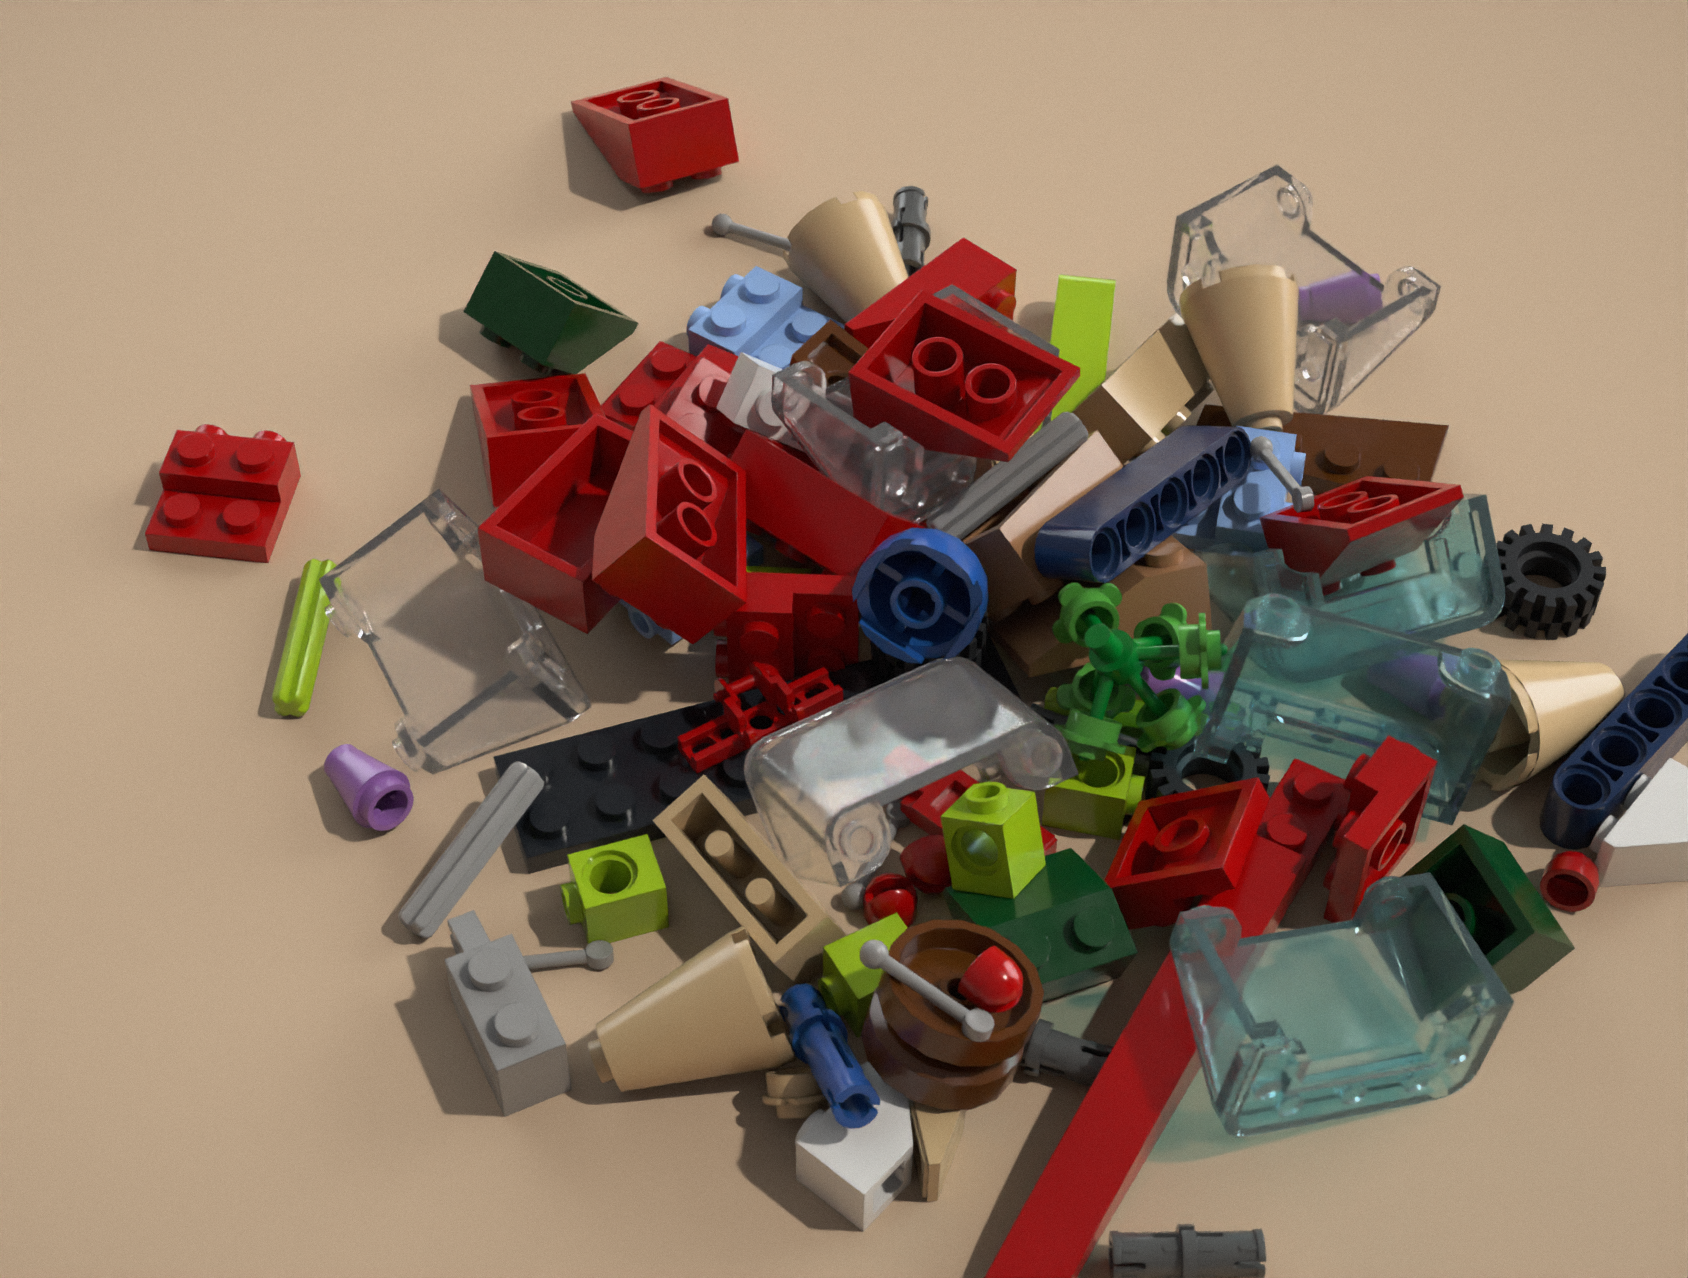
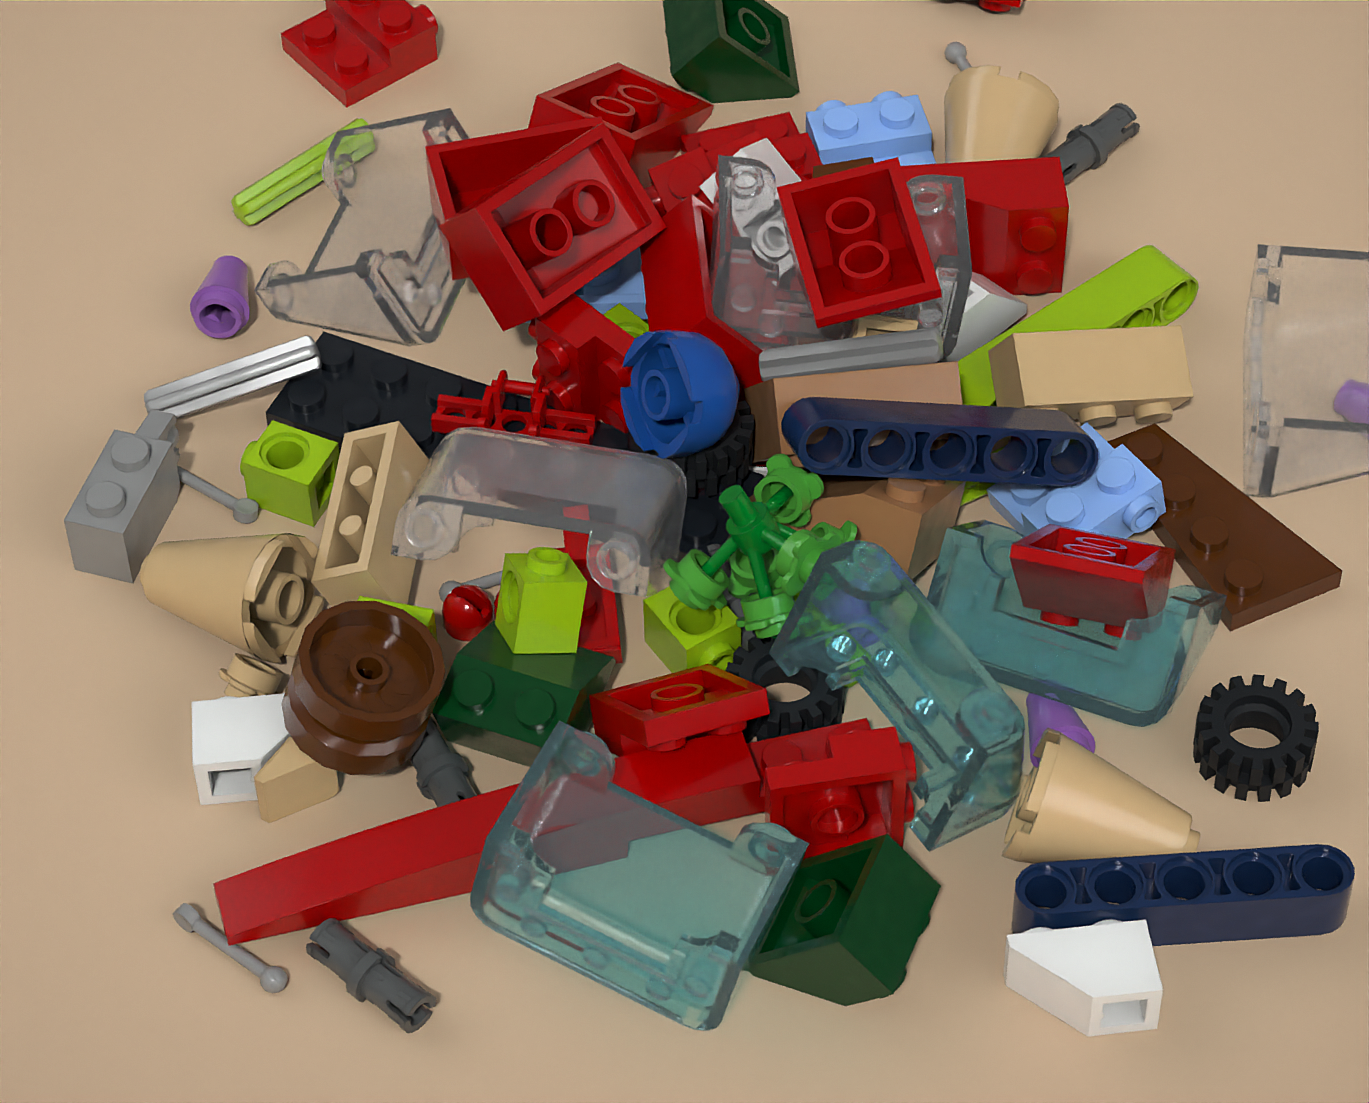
camera: 45 degrees right, 0 degrees up
(821, 1042) = (258, 674): blue pin -> none
(976, 1023) = (333, 687): light grey hinge -> none
(992, 982) = (377, 668): red hinge -> none
(1247, 341) = (1198, 384): tan cone -> none
(1302, 497) = (1104, 470): light grey hinge -> none
(1570, 881) = (973, 956): red hinge -> none

